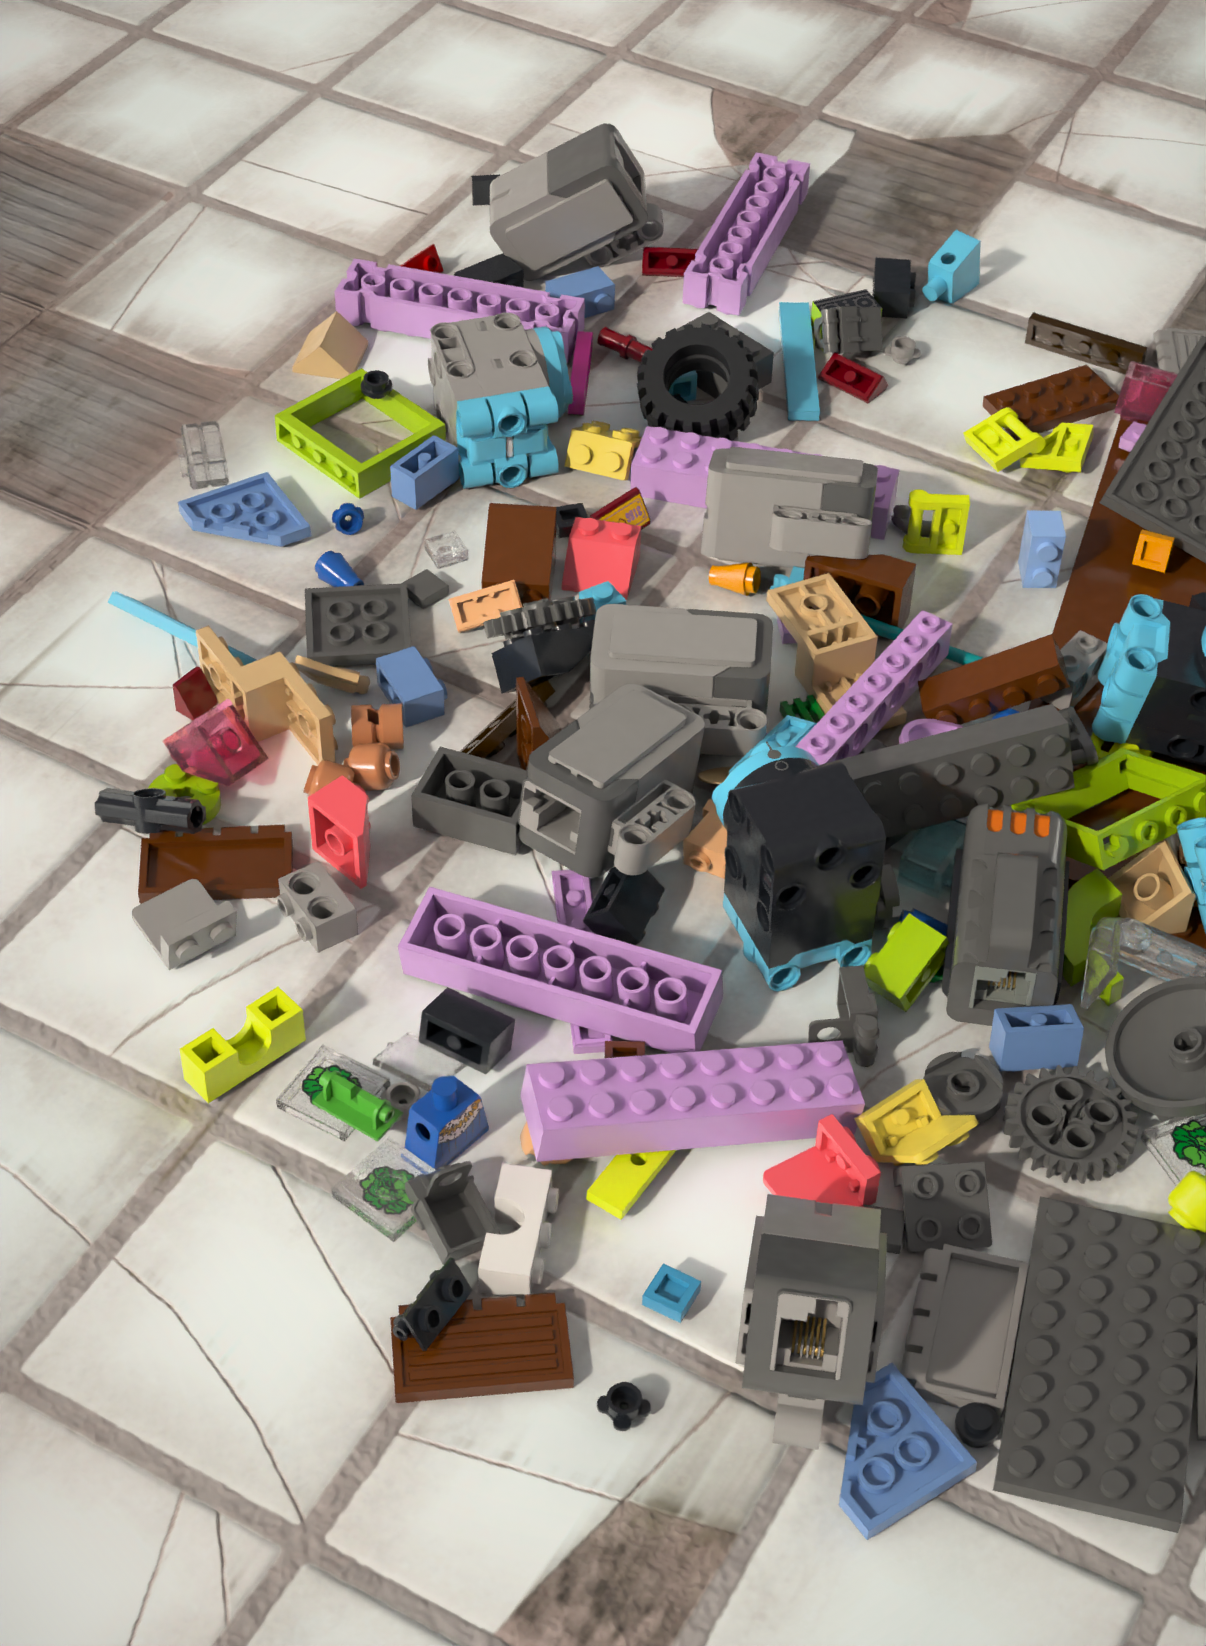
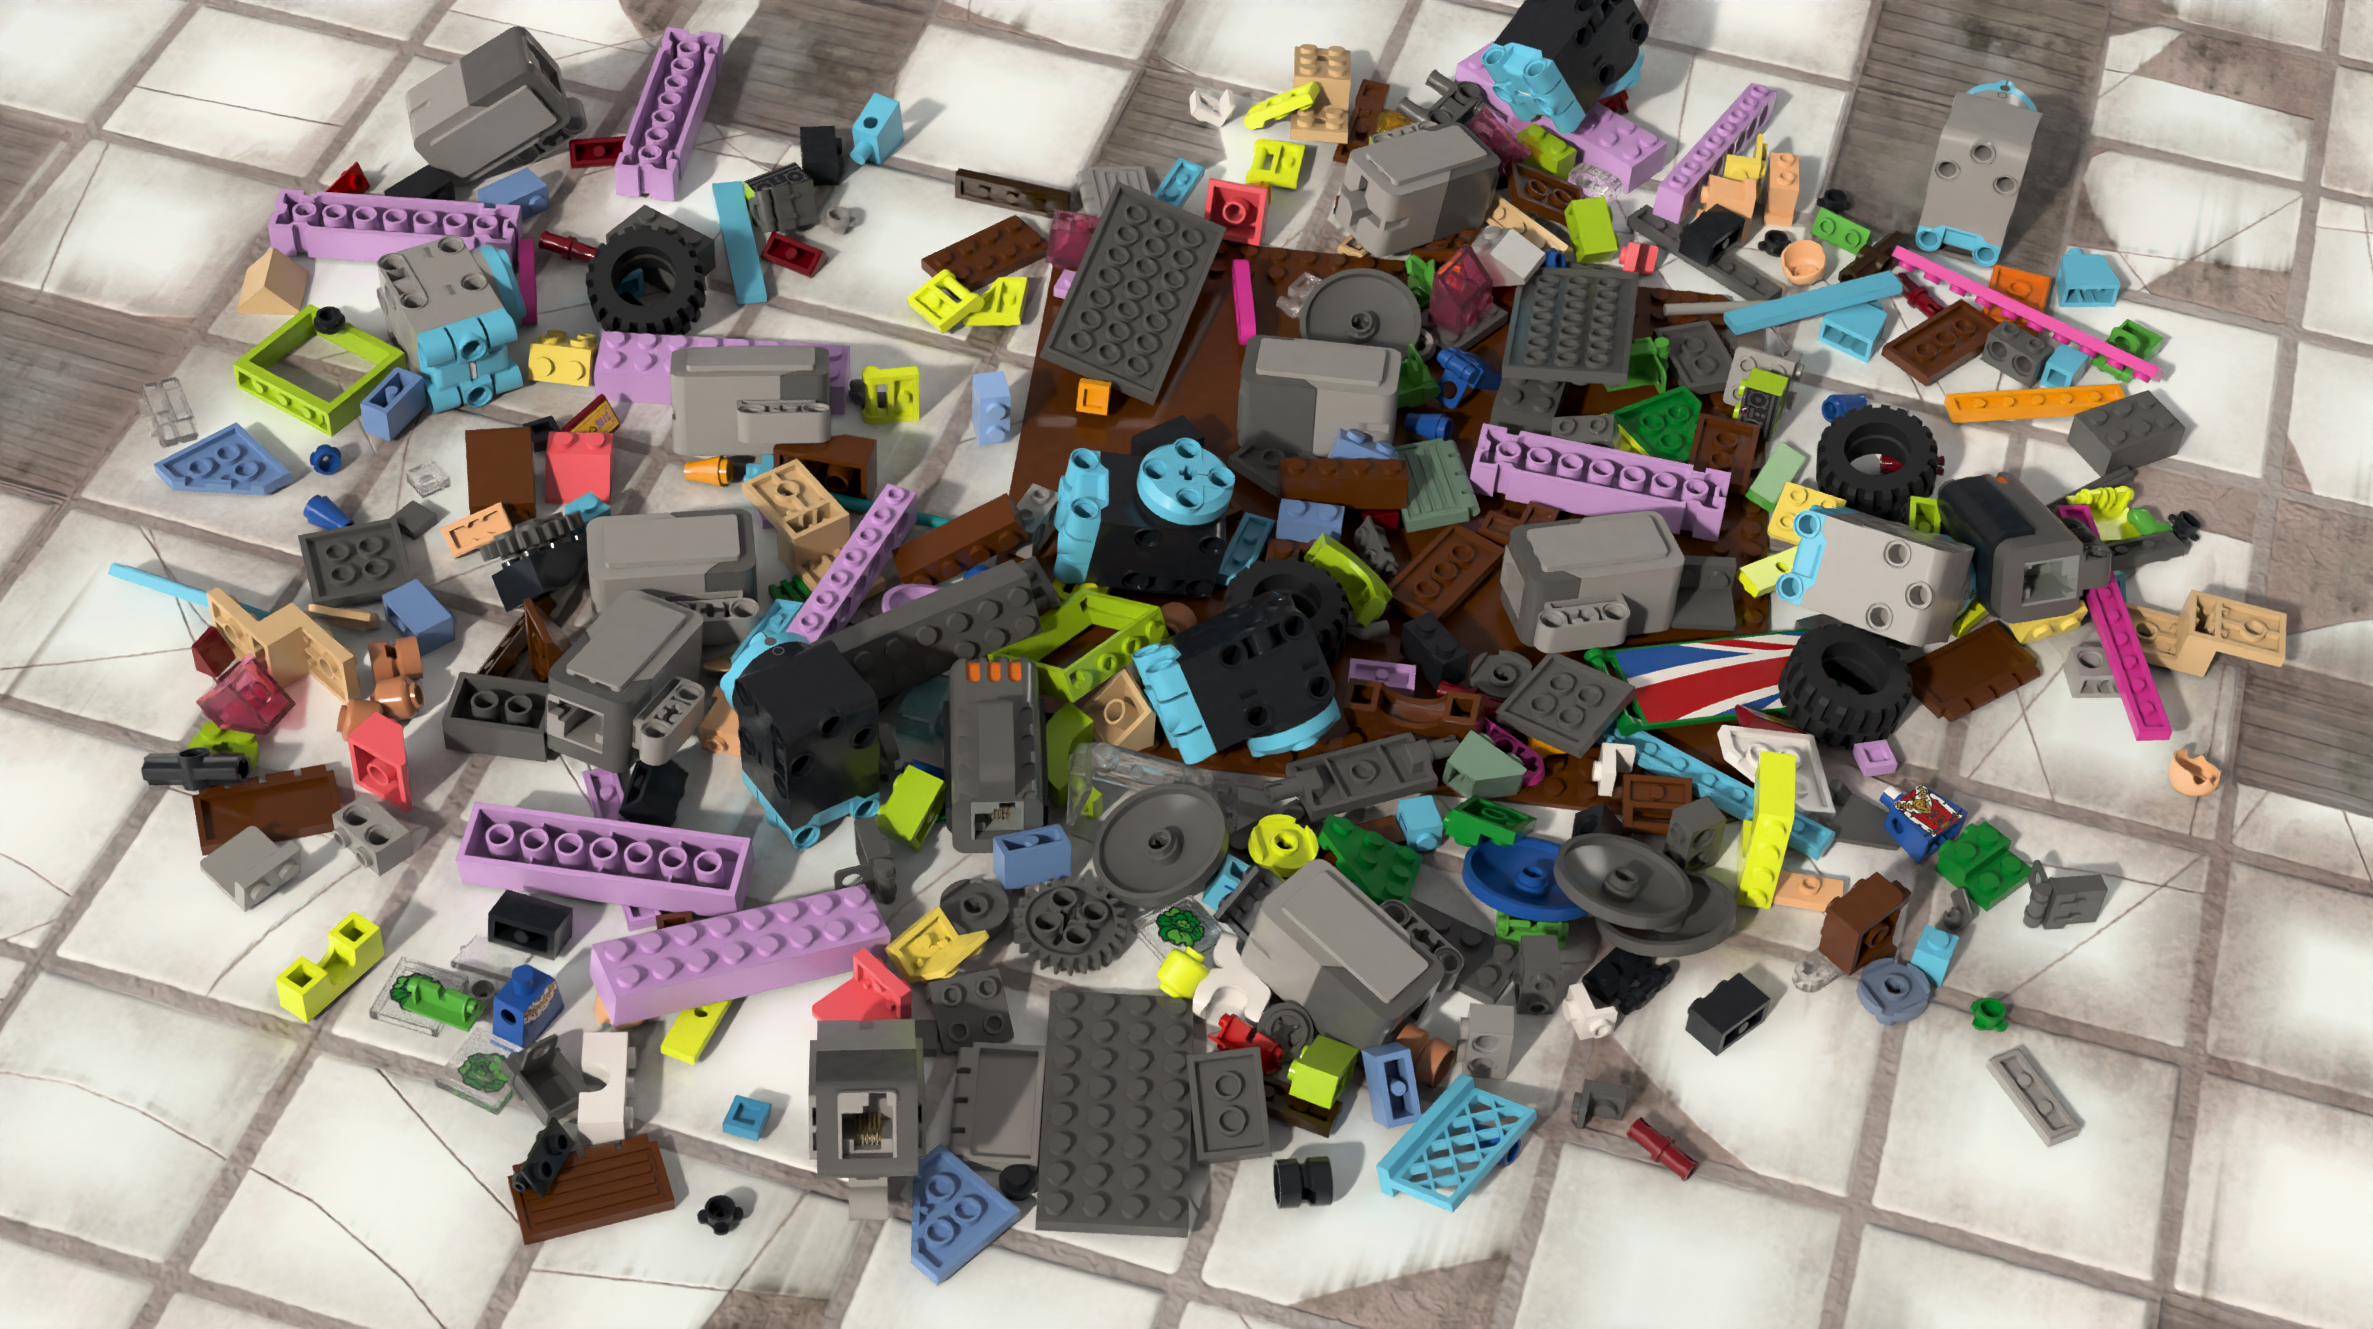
camera: 15 degrees left, 0 degrees up
(481, 189) = (395, 92): black tile -> none

